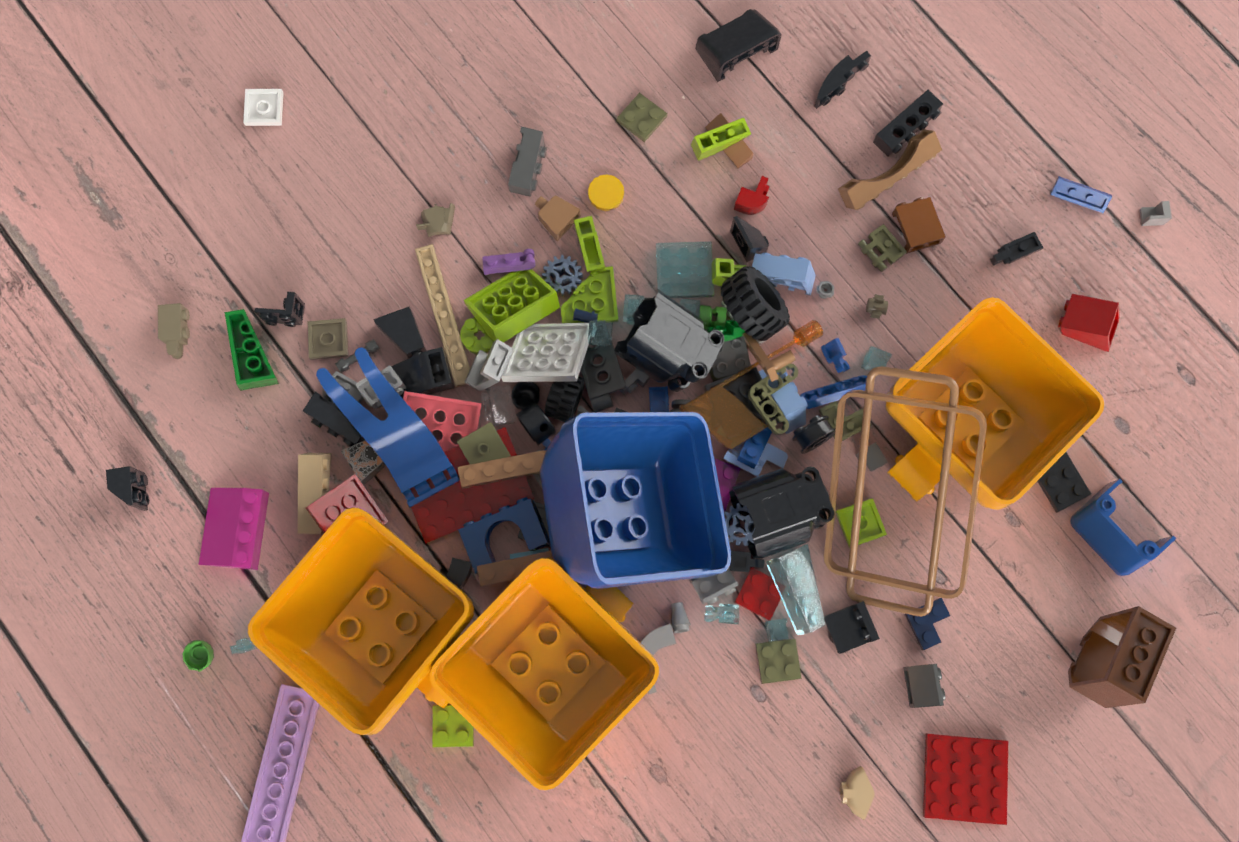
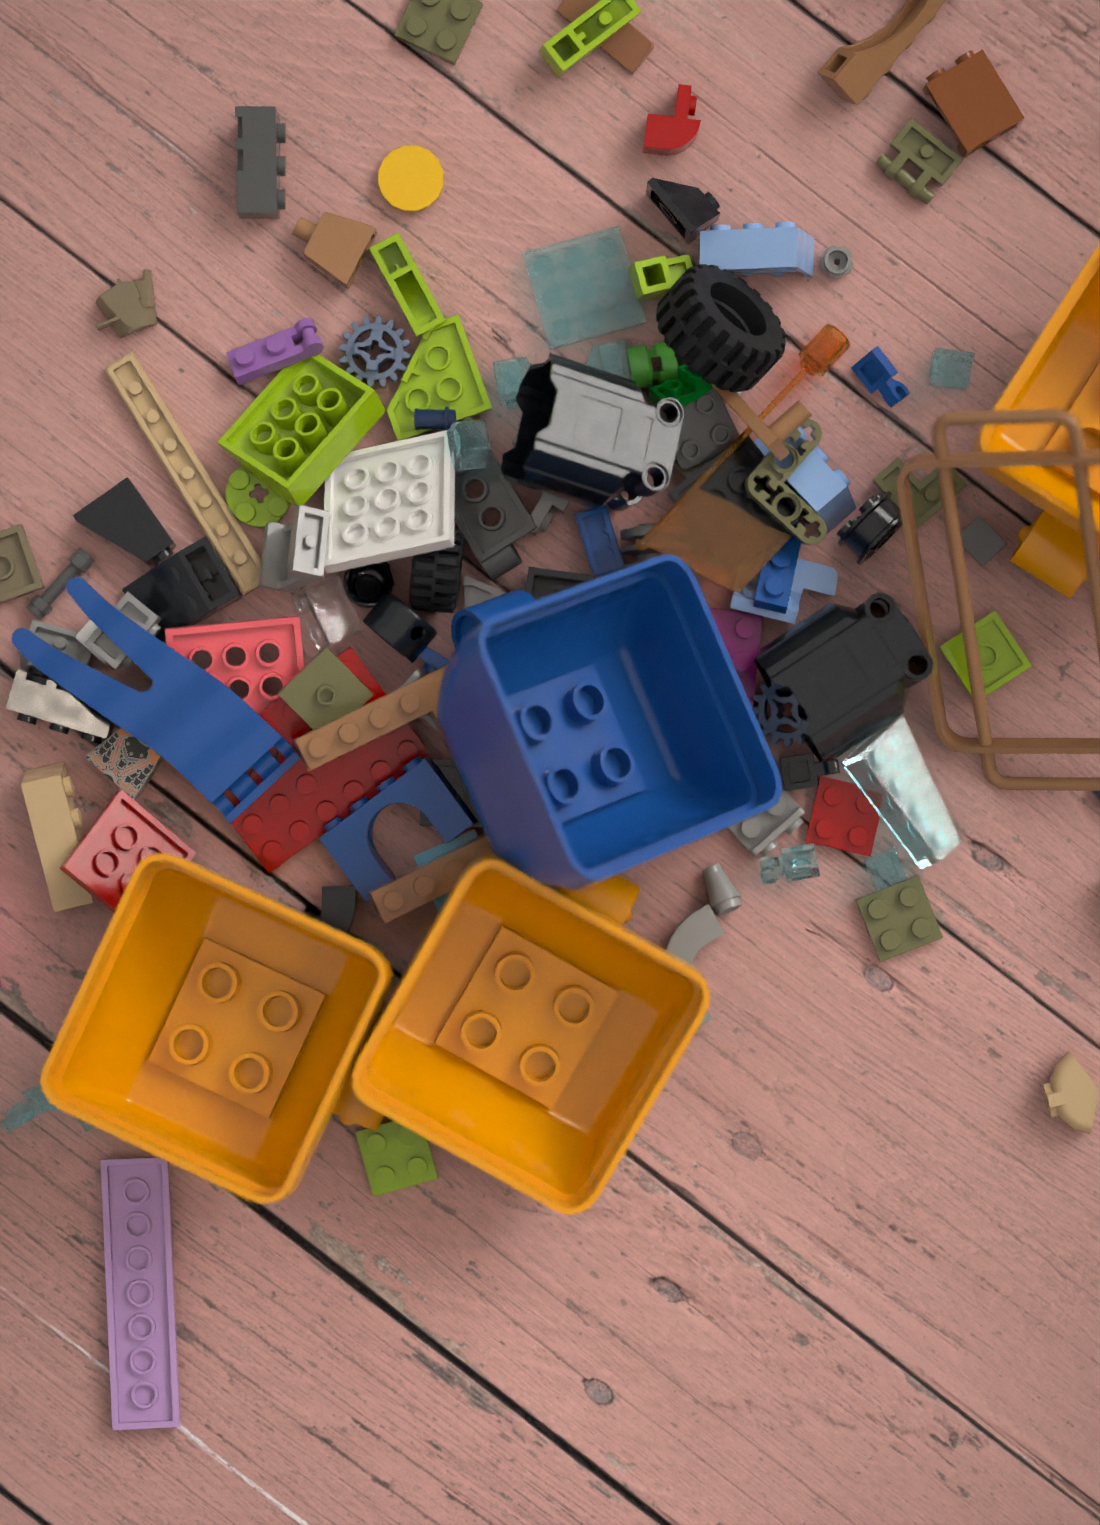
camera: 10 degrees left, 10 degrees up
(819, 396) = (891, 438): blue beam -> none
(851, 627) = (1004, 834): black bracket -> none
(877, 306) = (932, 271): dark tan gear -> none

